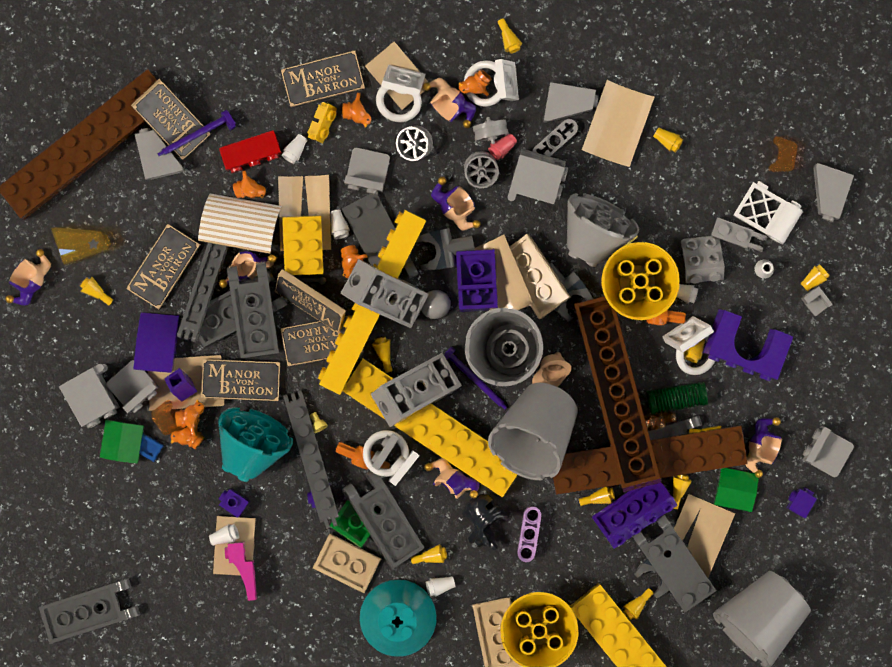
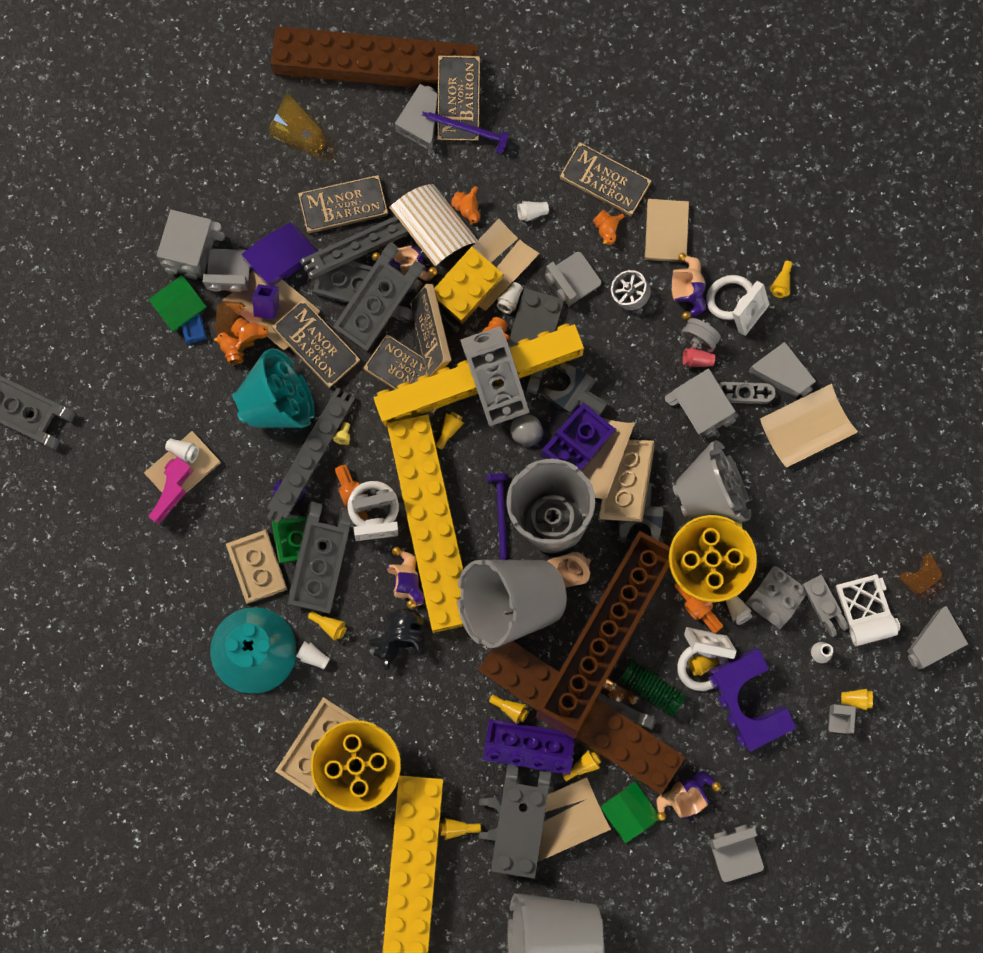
camera: 45 degrees right, 10 degrees down
(28, 279) = (231, 117): light nougat piece -> none
(92, 288) = (272, 169): yellow cone -> none
(233, 502) = (215, 432): dark purple brick -> none
(250, 151) = (496, 180): red brick -> none
(326, 114) = (580, 208): yellow hinge -> none
(402, 82) = (665, 233): white tile -> none
(402, 397) = (429, 466): light grey plate -> none
(455, 204) = (617, 367): light nougat piece -> none
(476, 83) = (723, 290): orange animal -> none
(481, 169) = (664, 359): light grey wheel -> none
(529, 543) = (420, 693): lavender beam -> none
(668, 139) = (838, 476): yellow cone -> none
(801, 502) = (675, 874): dark purple brick -> none

